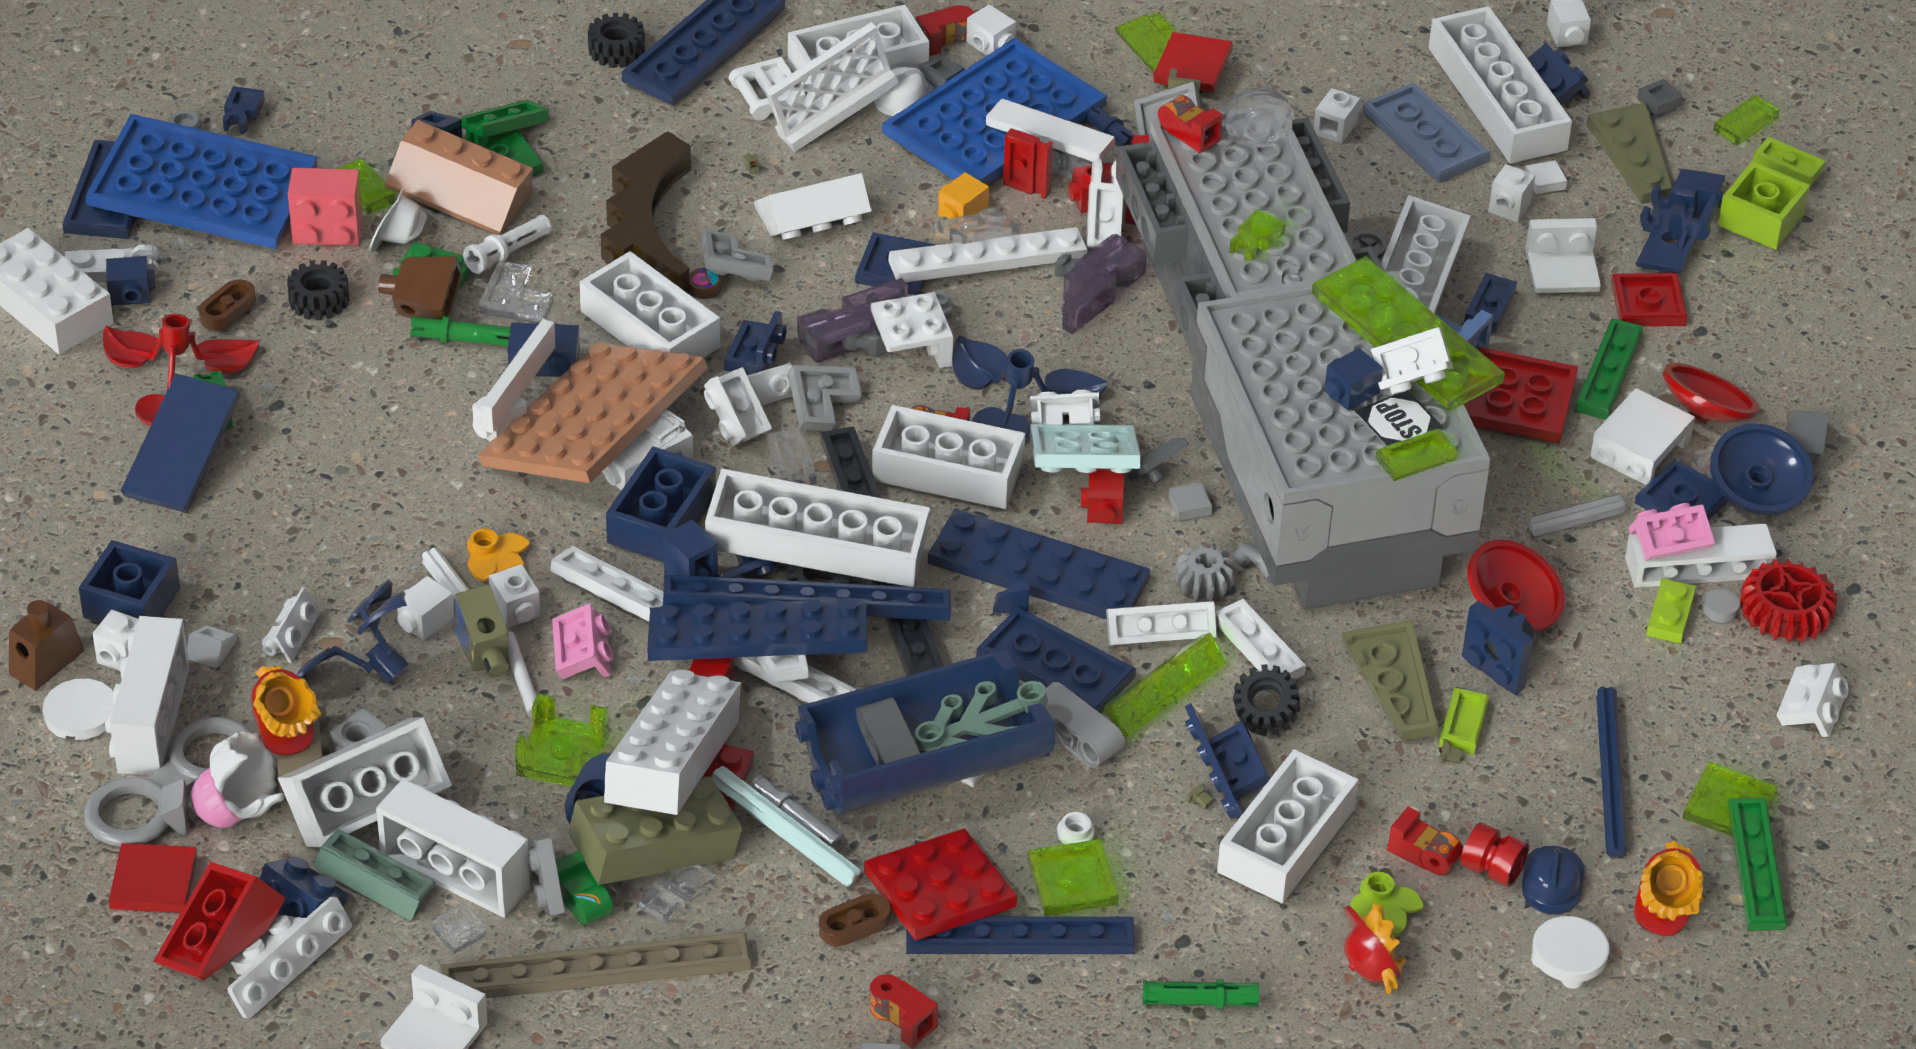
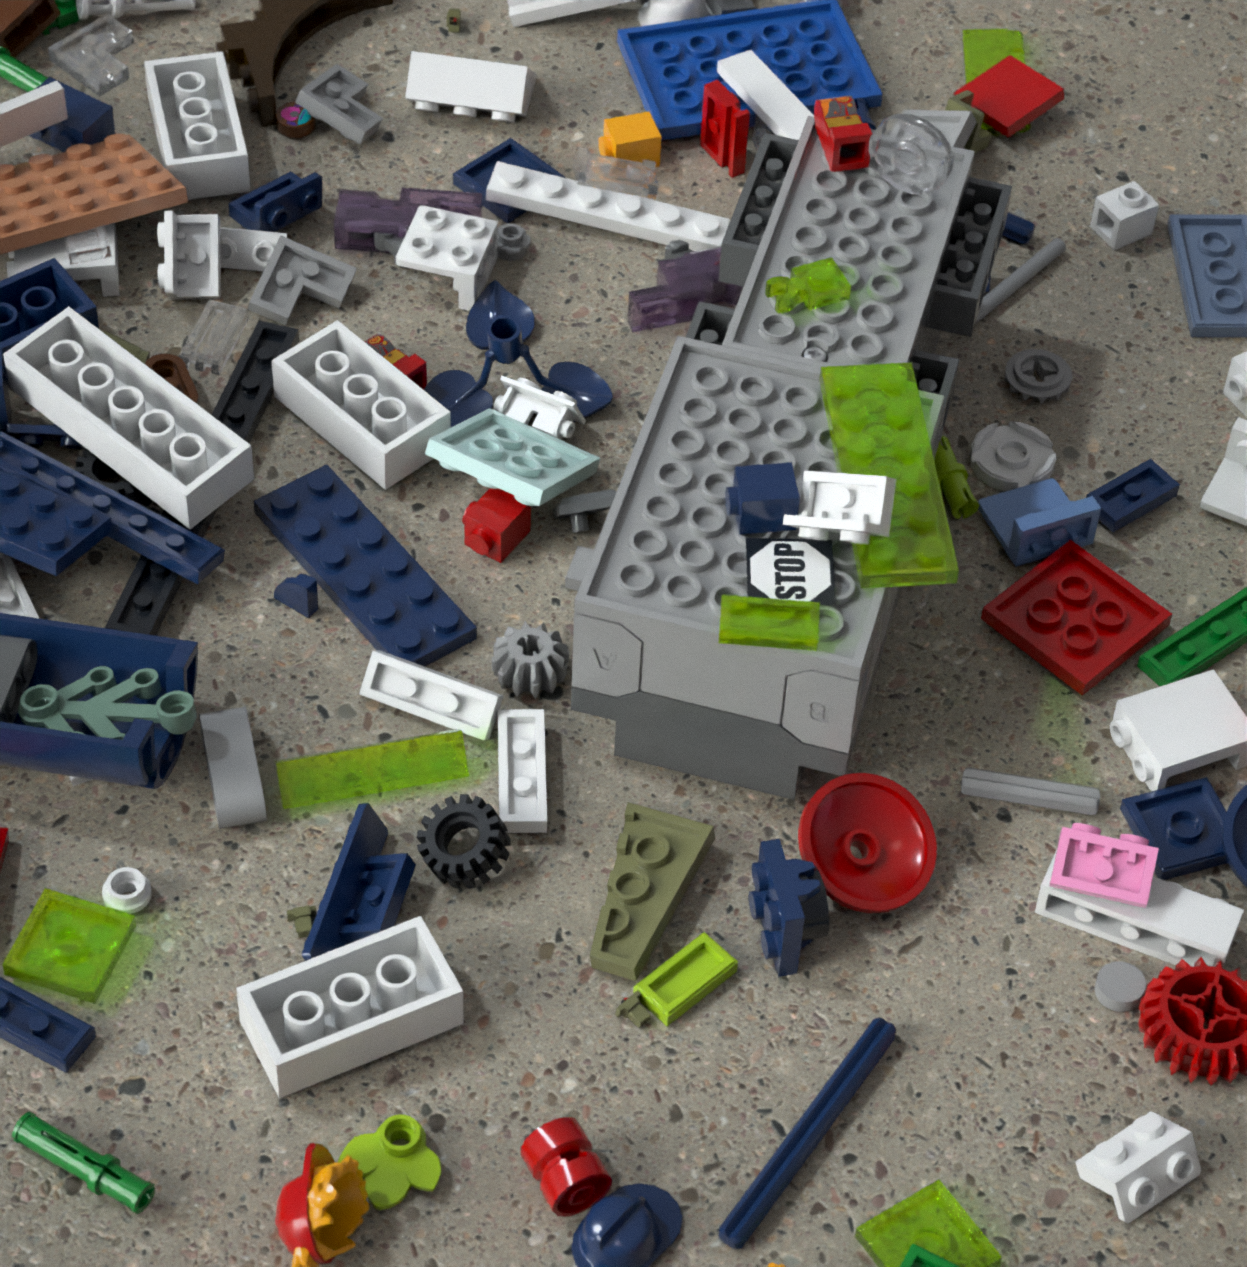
camera: 30 degrees right, 5 degrees up
(1052, 655) = (285, 685): dark blue tile -> none
(1423, 844) = (497, 1105): red leg -> none
(1425, 248) = (1049, 423): white brick -> none
(1671, 610) = (1052, 963): lime plate -> none

